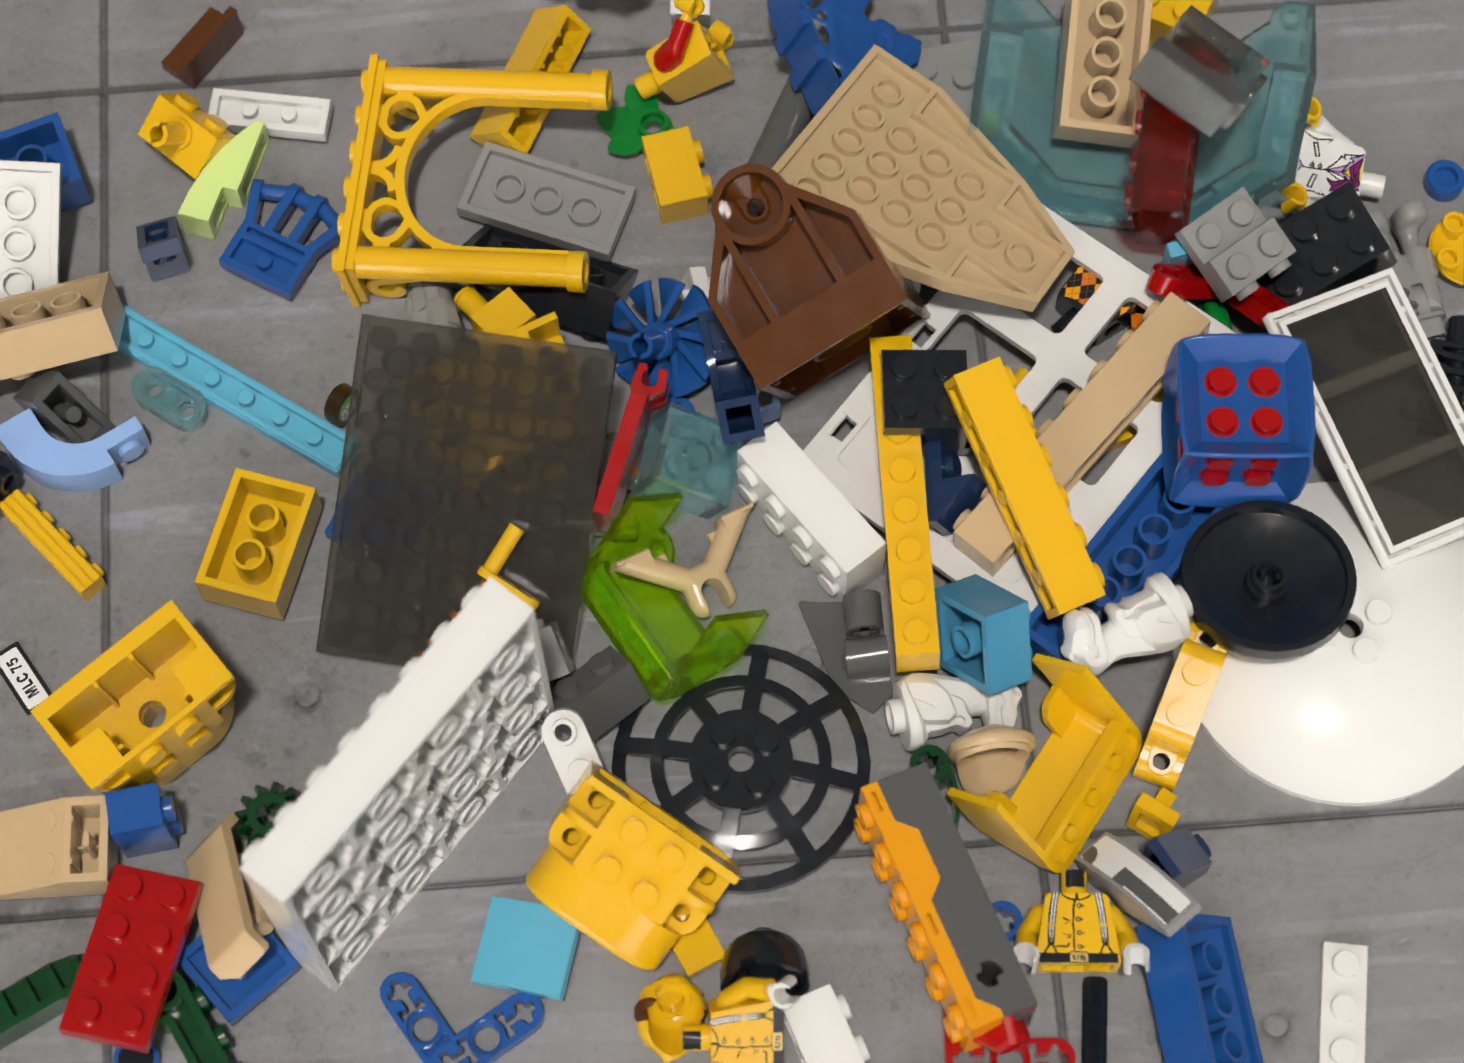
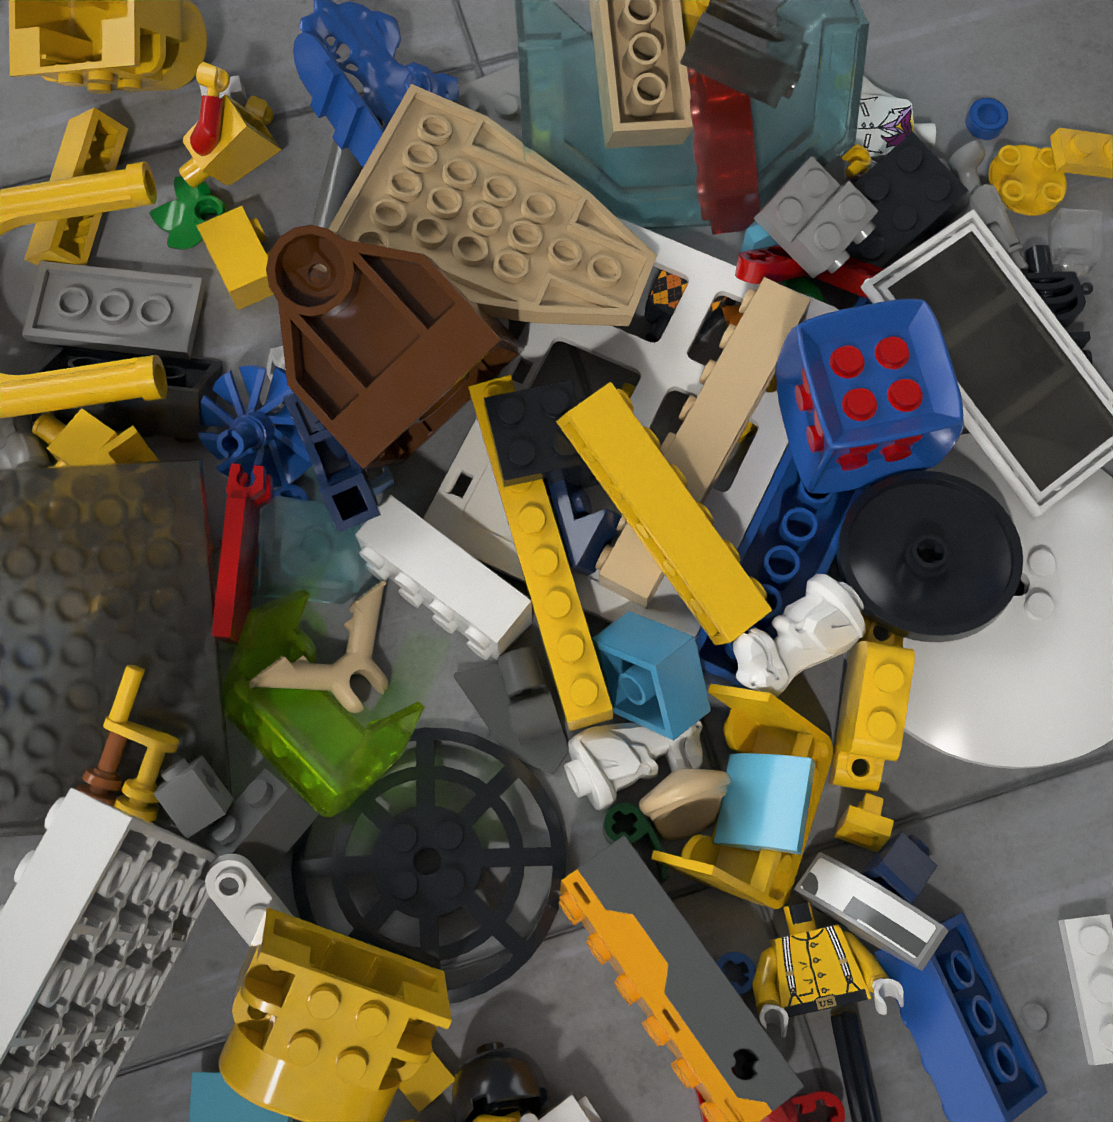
camera: 15 degrees left, 5 degrees up
(1064, 771) = (765, 802): none -> medium azure slope

